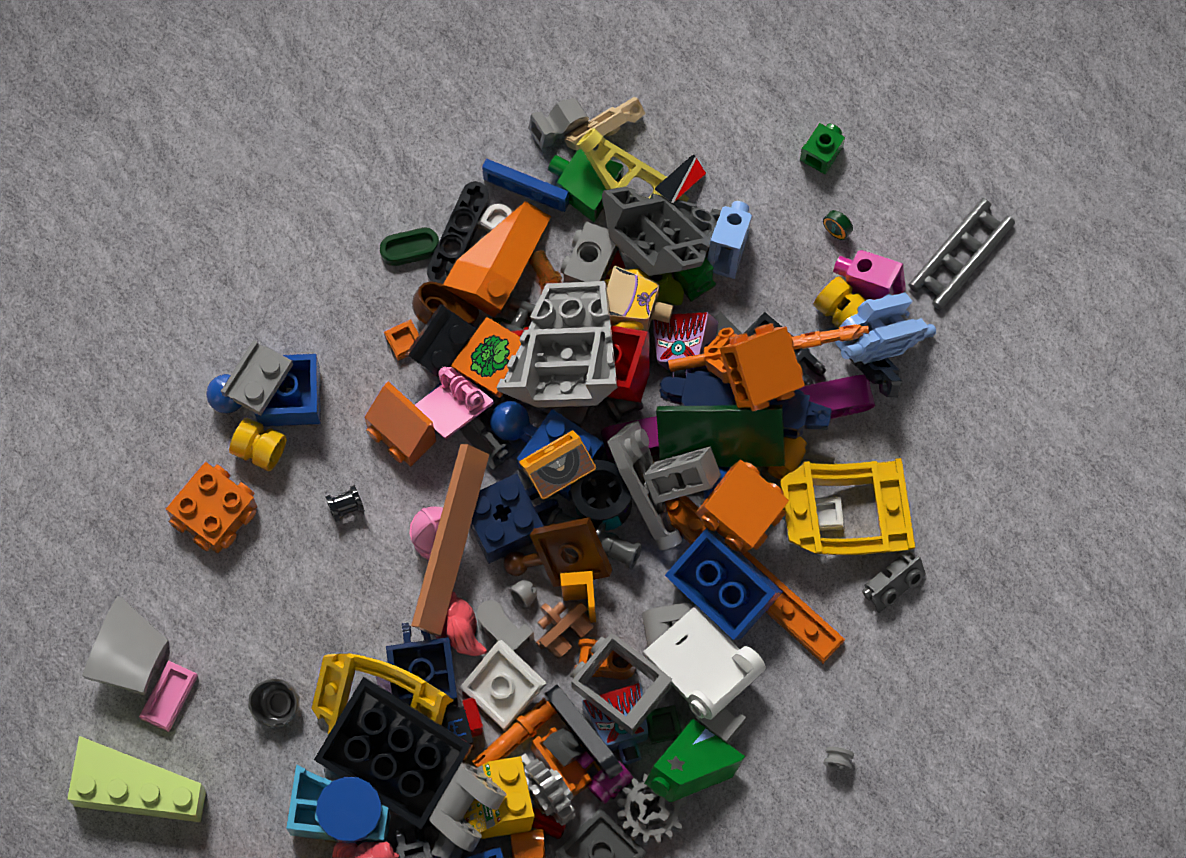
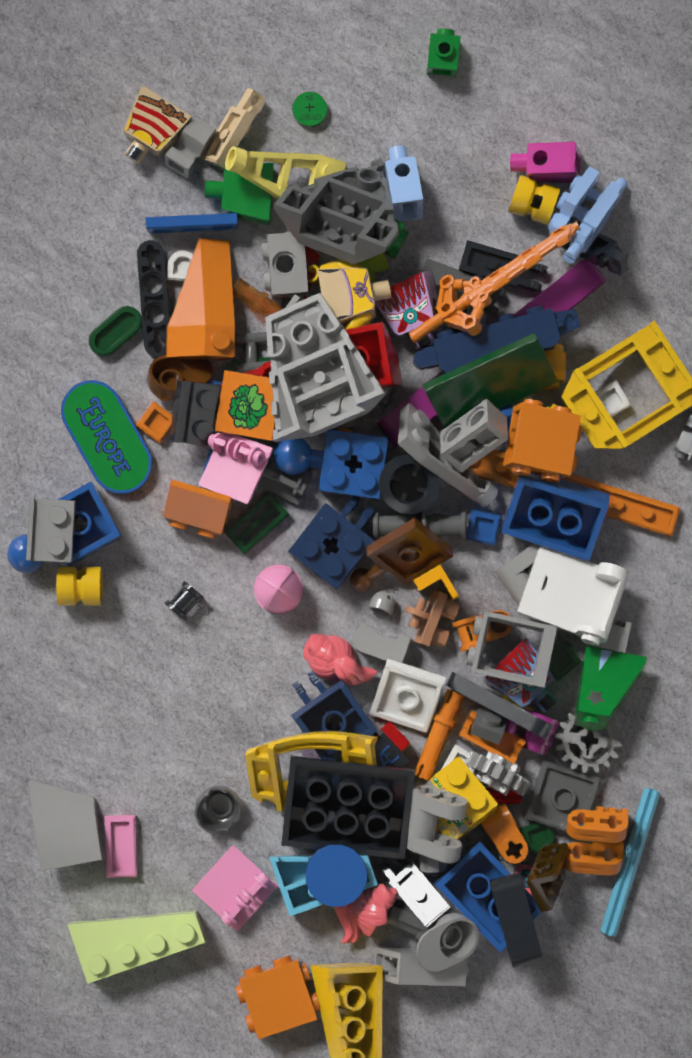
camera: 25 degrees left, 15 degrees up
(212, 508) = (70, 663): orange brick -> none
(251, 786) = (234, 888): none -> bright pink hinge
(352, 331) = (106, 437): none -> green tile
(431, 461) = (276, 506): none -> dark green tile
(450, 540) = (300, 595): nougat tile -> none
(533, 88) = (153, 125): none -> torso
(558, 464) = (360, 481): panel -> none
(650, 570) = (483, 527): none -> blue tile
(680, 141) = (309, 109): none -> green piece
(681, 179) = (331, 149): sticker -> none
(762, 367) = (502, 308): orange brick -> none
(838, 224) = (493, 123): dark green tile -> none
(962, 272) = (623, 112): dark grey bar -> none

